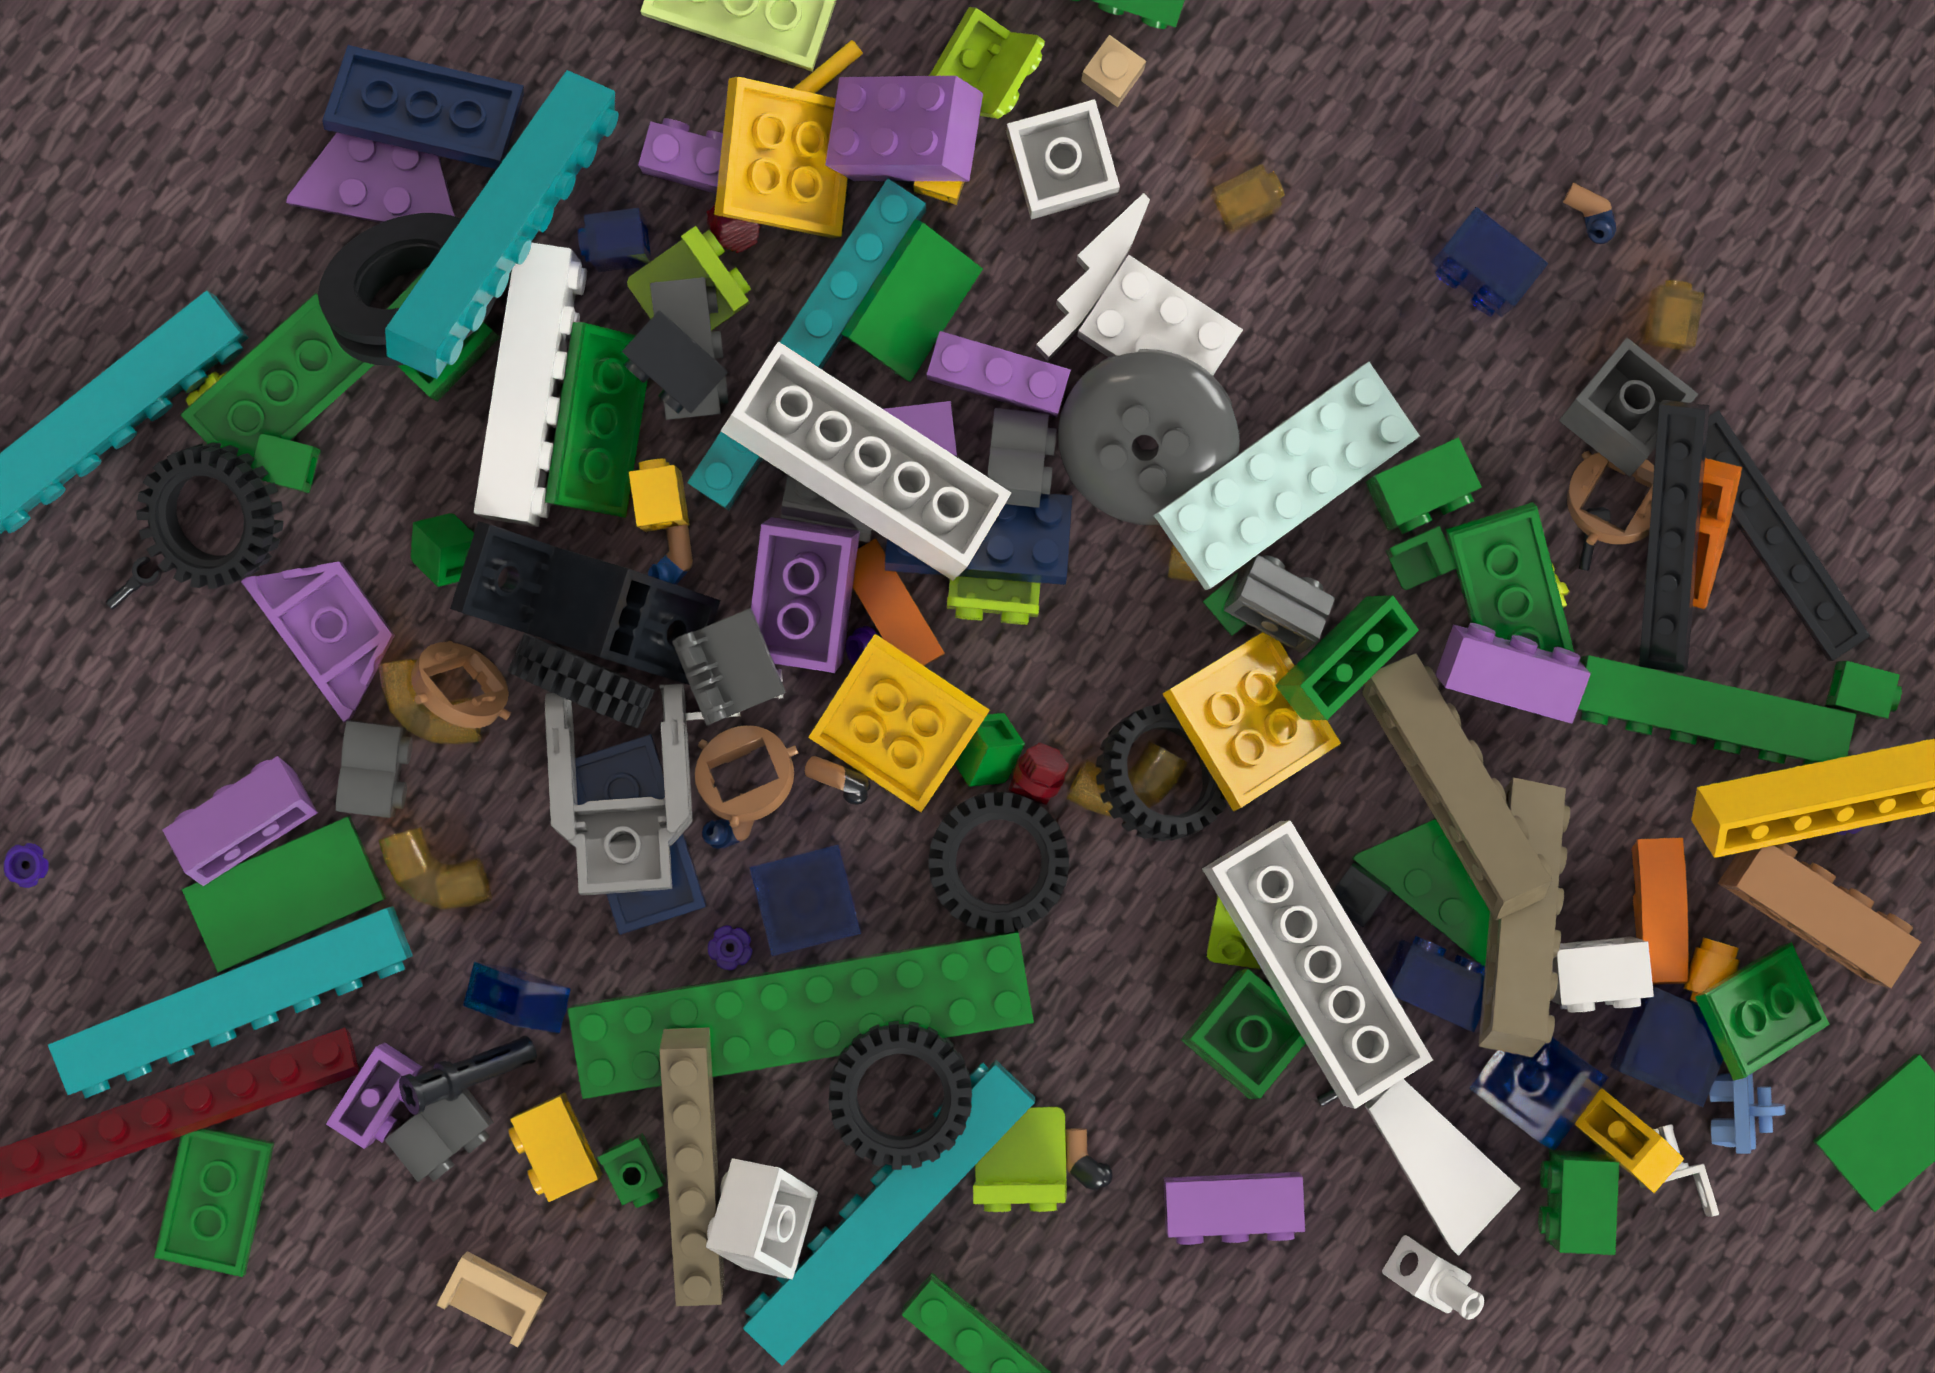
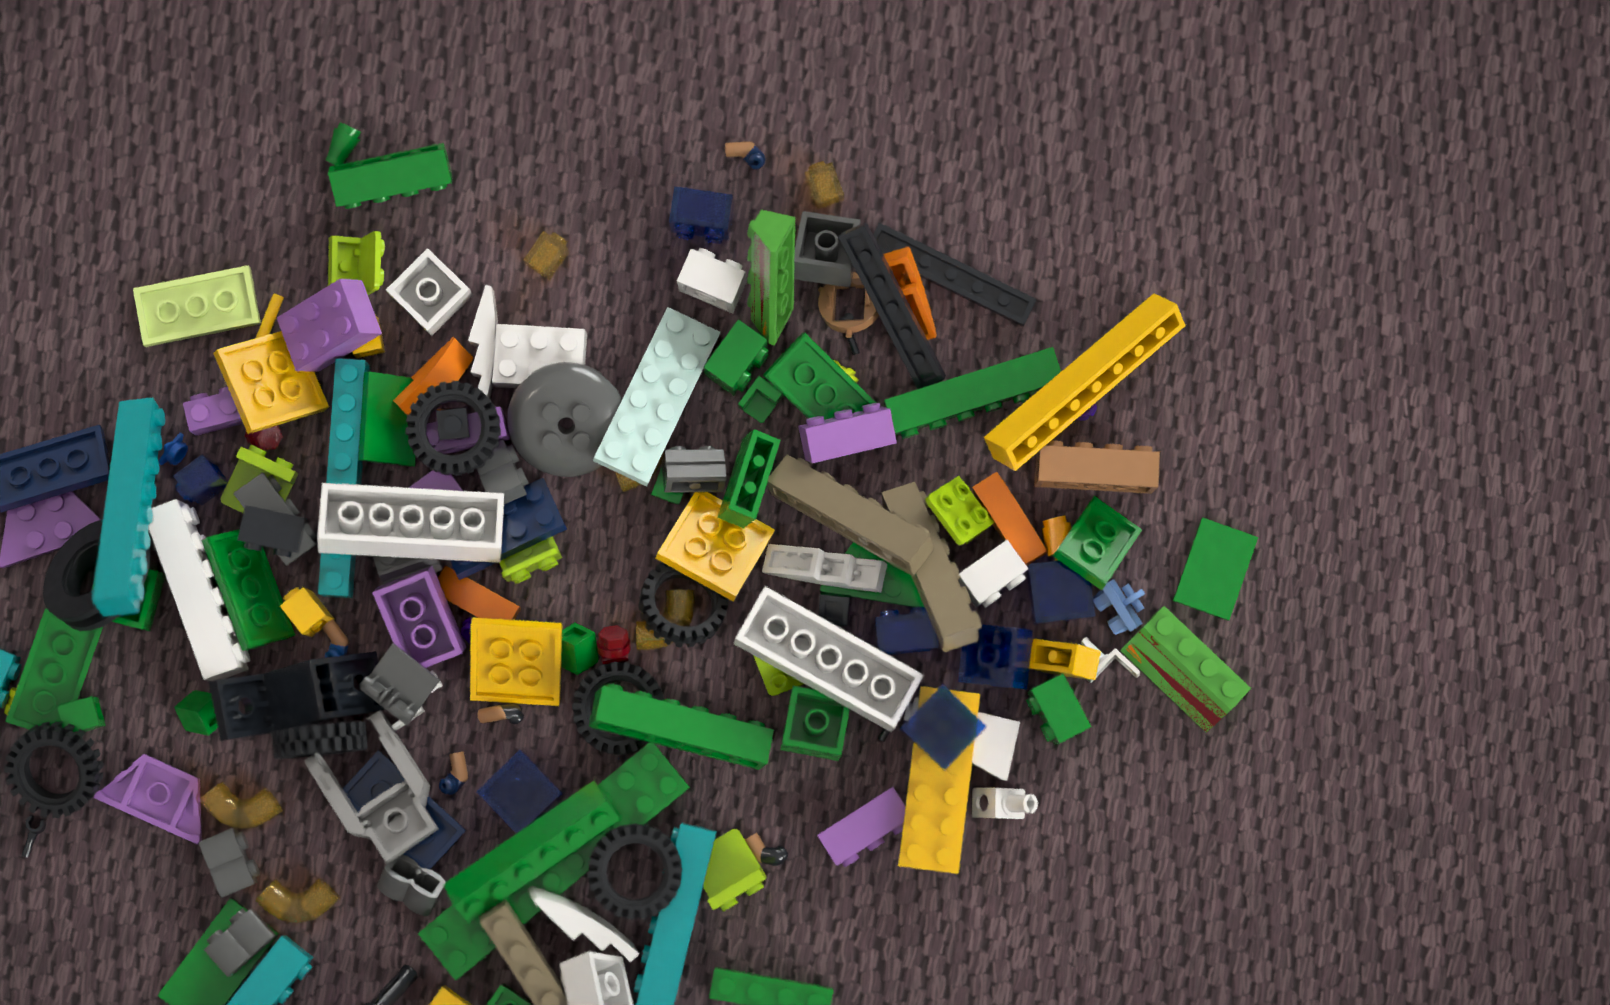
camera: 35 degrees left, 5 degrees down
(239, 820) = (168, 935): medium lavender brick -> none
(327, 884) = (239, 942): none -> dark grey brick
(470, 714) = (269, 794): medium nougat piece -> none
(517, 997) = (385, 943): clear blue brick -> none
(596, 940) = (413, 885): none -> dark grey brick
(602, 179) = (174, 451): none -> blue plate
(731, 746) = (429, 730): medium nougat piece -> none
(737, 937) = (486, 841): dark purple plate -> none
(777, 992) = (531, 852): none -> green brick
(789, 1114) = (577, 919): none -> white slope
(996, 357) = (453, 423): none -> black plate
(997, 310) = (428, 403): none -> black tyre
(1000, 283) = (445, 366): none -> orange slope
(1068, 937) = (681, 727): none -> green brick
(1113, 70) = (430, 227): tan brick -> none
(1369, 1204) = (936, 803): none -> yellow plate
(1378, 833) = (824, 567): none -> white slope
(1419, 1145) = (943, 727): none -> clear blue brick
(1451, 360) = (712, 279): none -> white brick
(1539, 399) = (771, 272): none -> bright green slope
(1604, 863) = (959, 511): none -> lime bracket
(1779, 1243) = (1185, 669): none -> bright green slope
(1864, 690) = (1051, 331): green brick -> none

